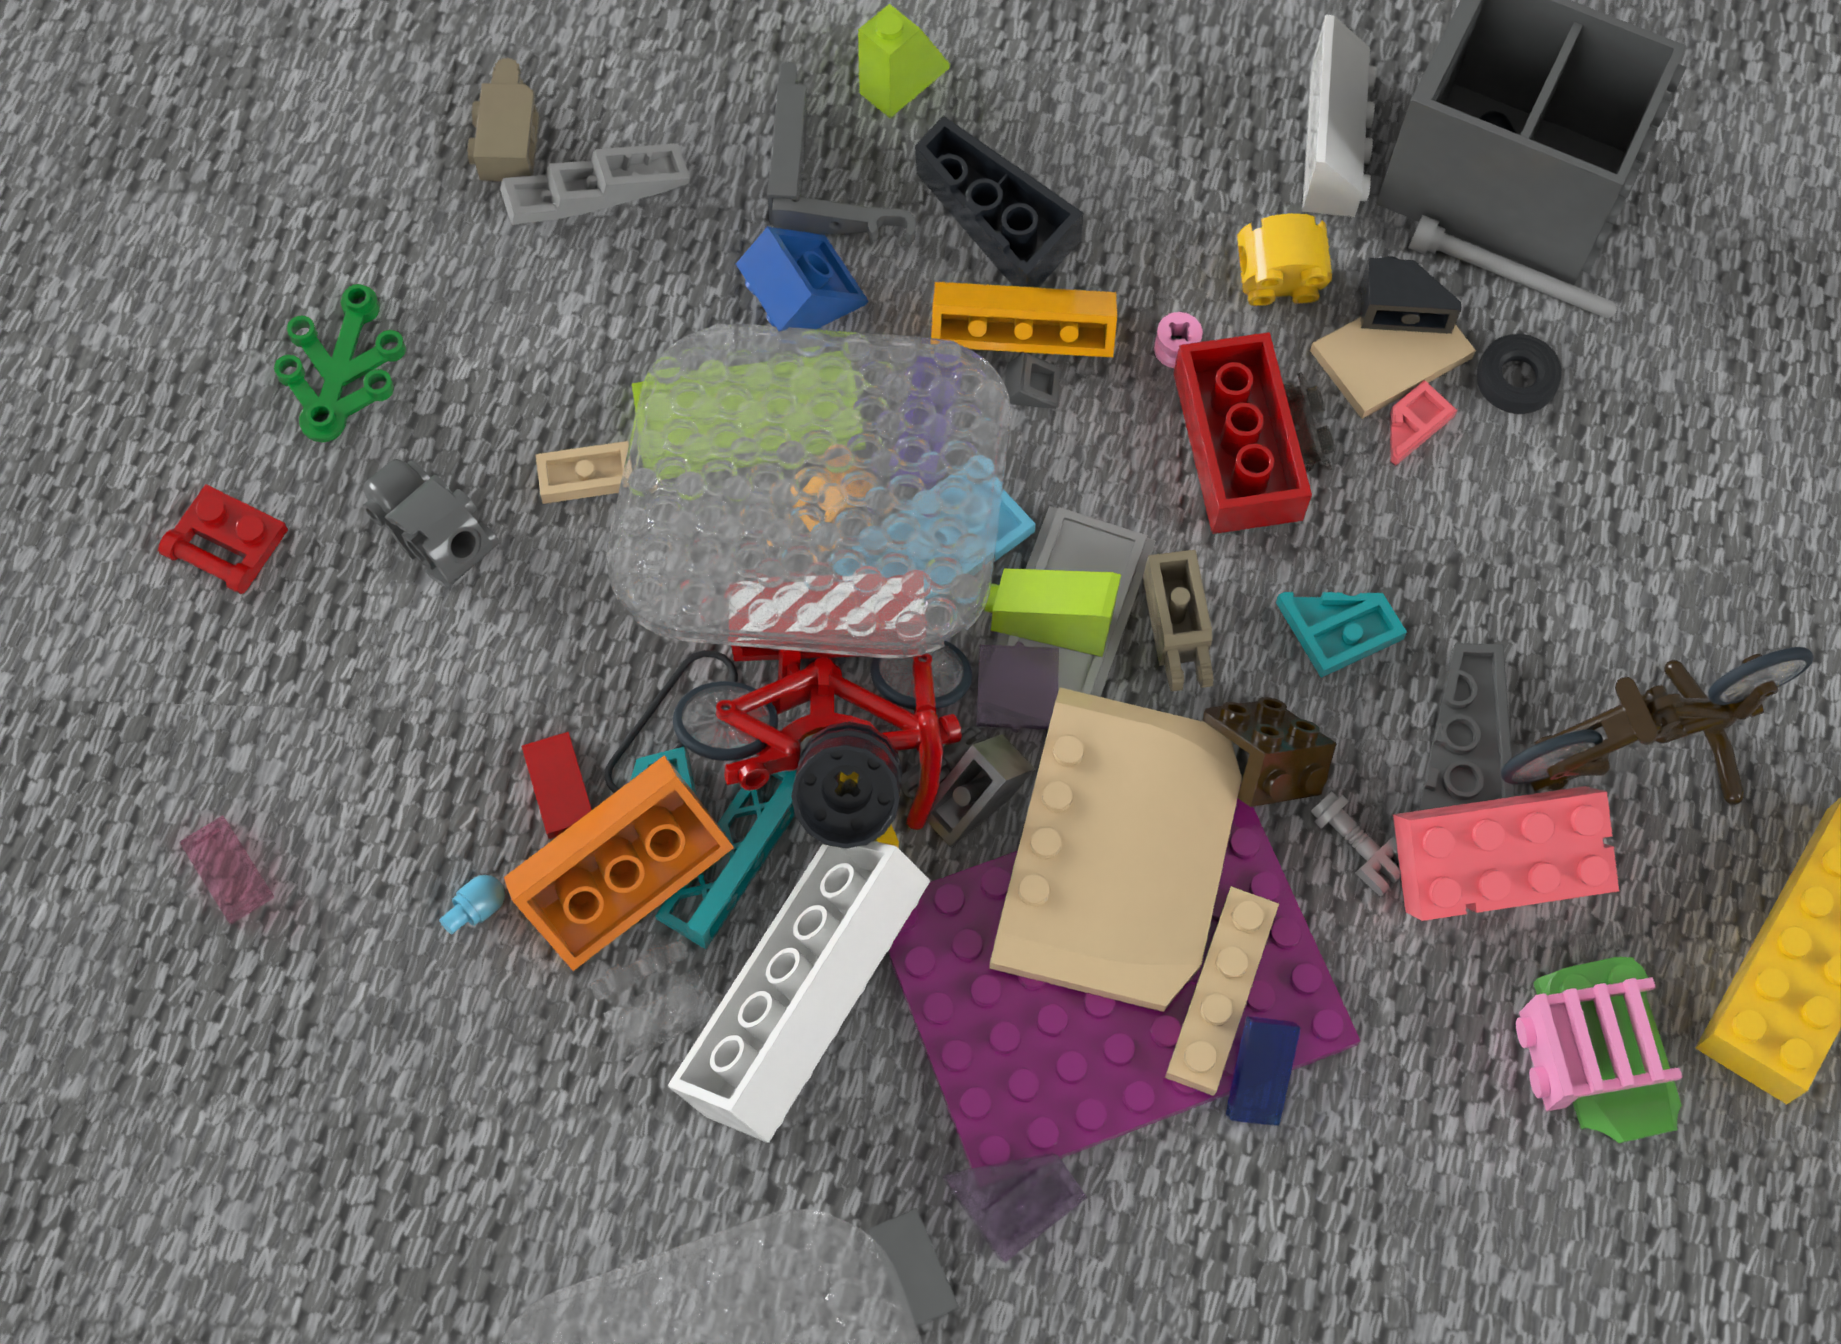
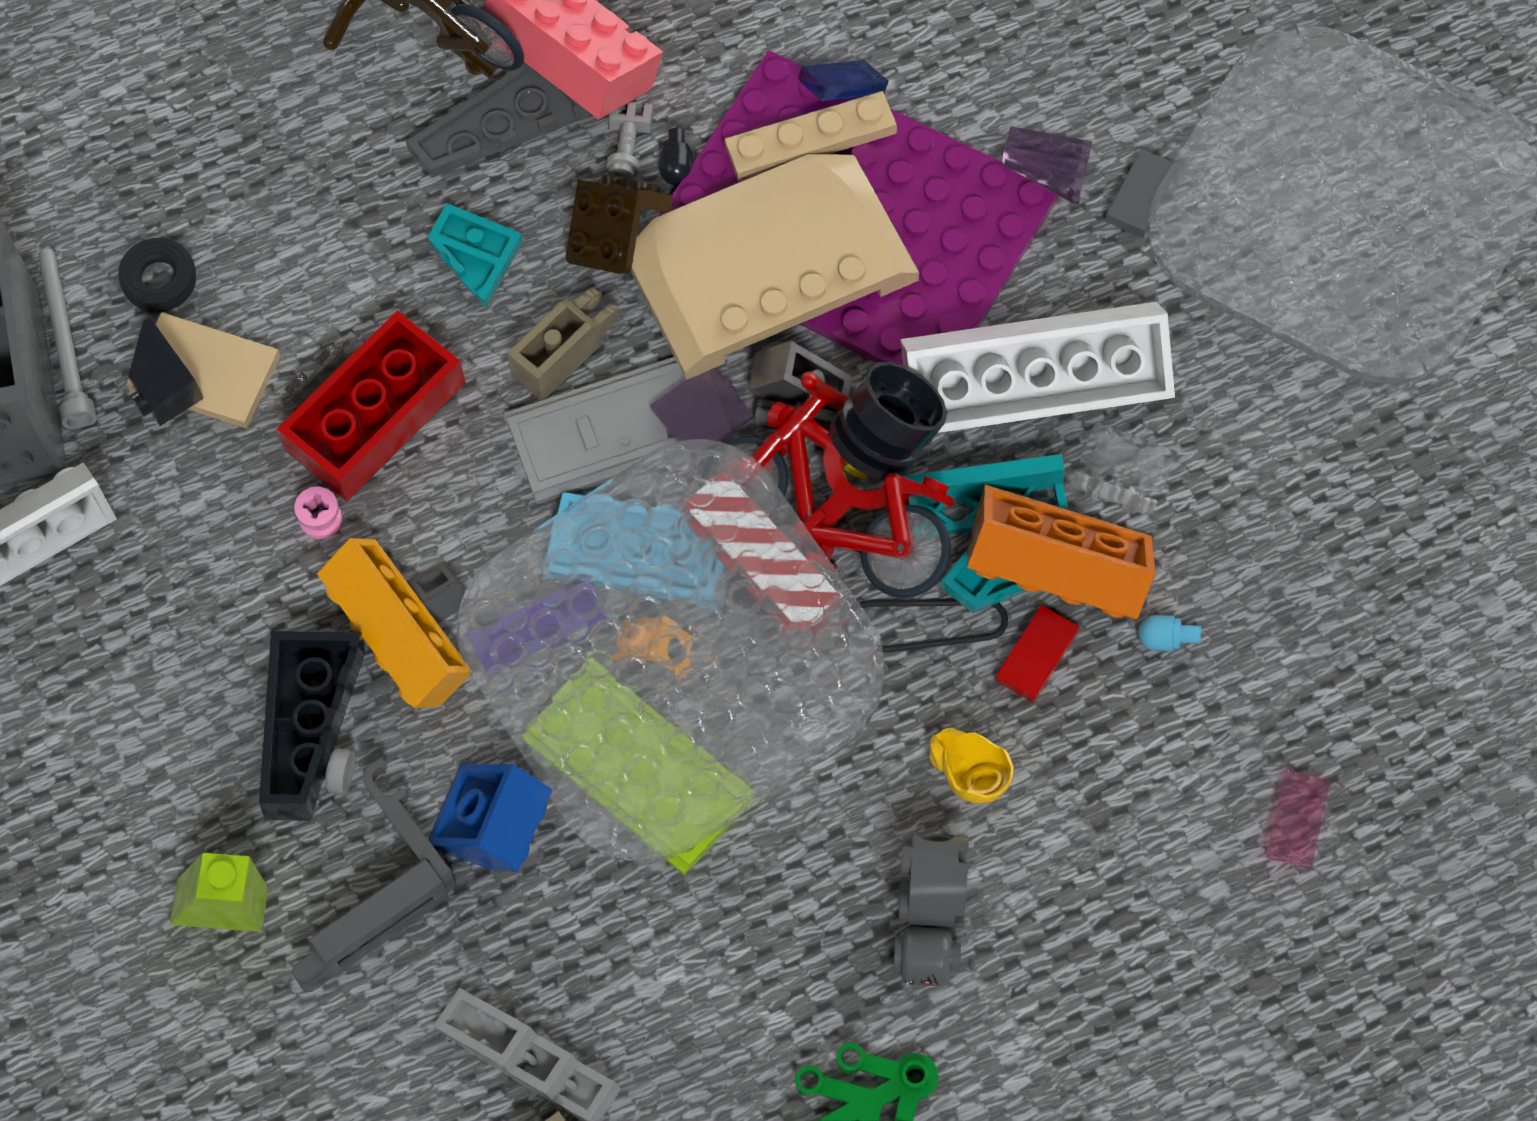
camera: 125 degrees left, 0 degrees up
(231, 526) = (1058, 1064): red plate -> none
(508, 641) = (972, 765): none -> yellow hair
(581, 472) = (788, 839): tan plate -> none
(933, 209) = (340, 771): none -> light grey tile
(1055, 607) = (624, 402): lime slope -> none
(1284, 259) = (191, 476): yellow brick -> none
(1303, 865) = (675, 158): none -> black cylinder
(1417, 419) = (255, 316): coral tile -> none

